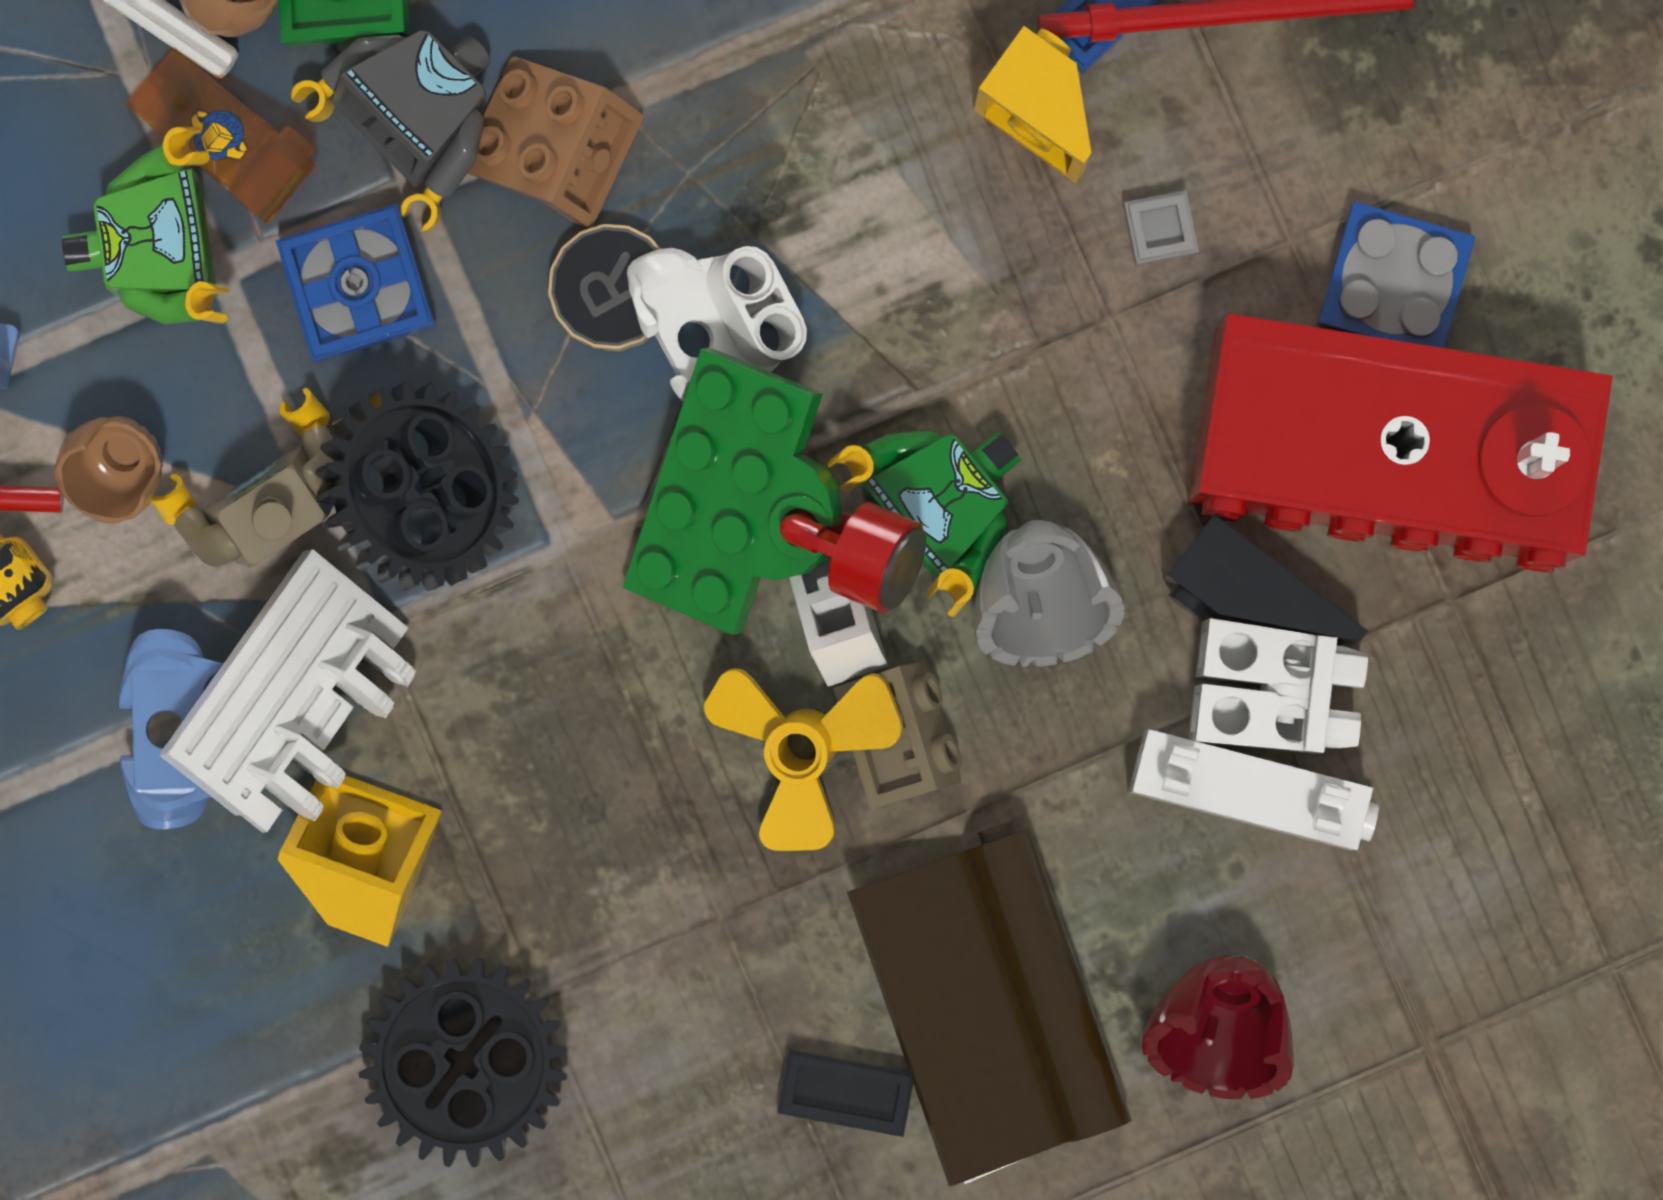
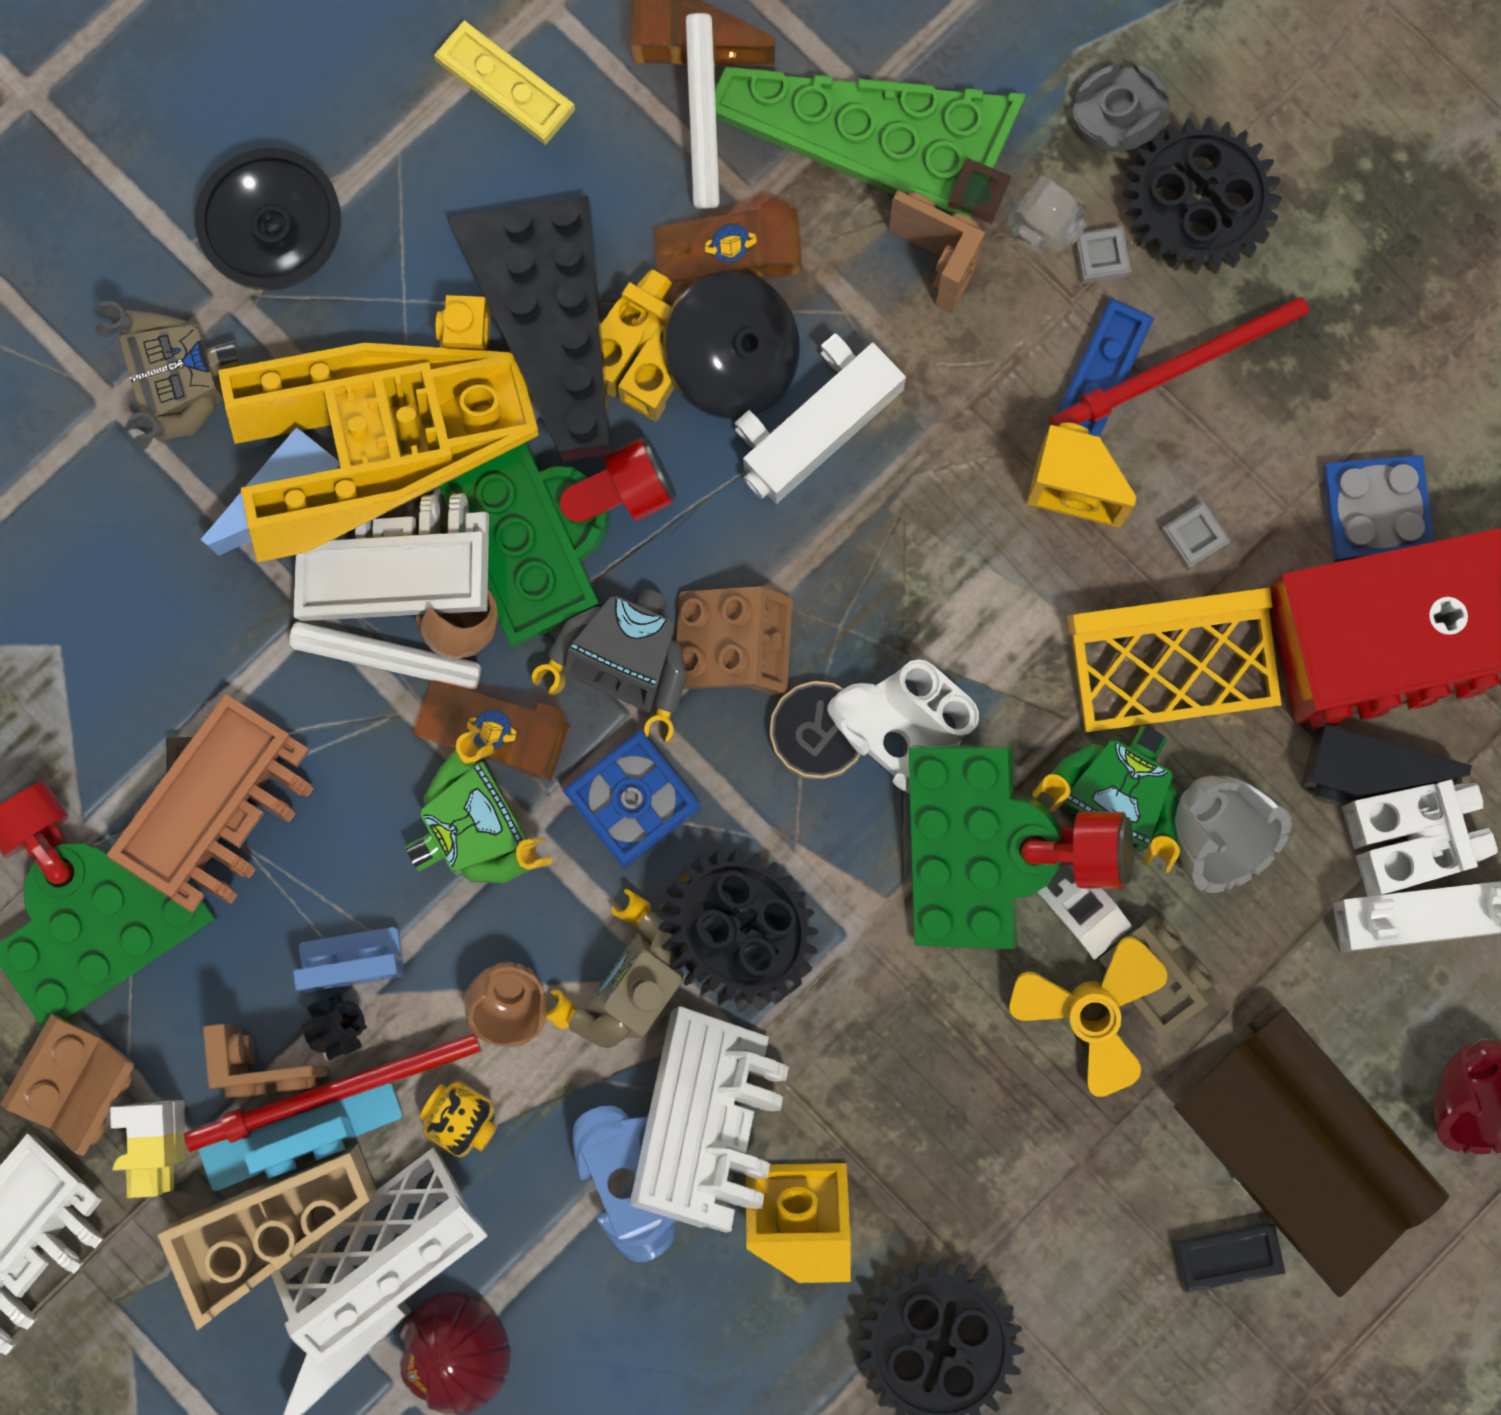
camera: 15 degrees left, 5 degrees down
(1086, 314) = (1173, 616): none -> yellow fence

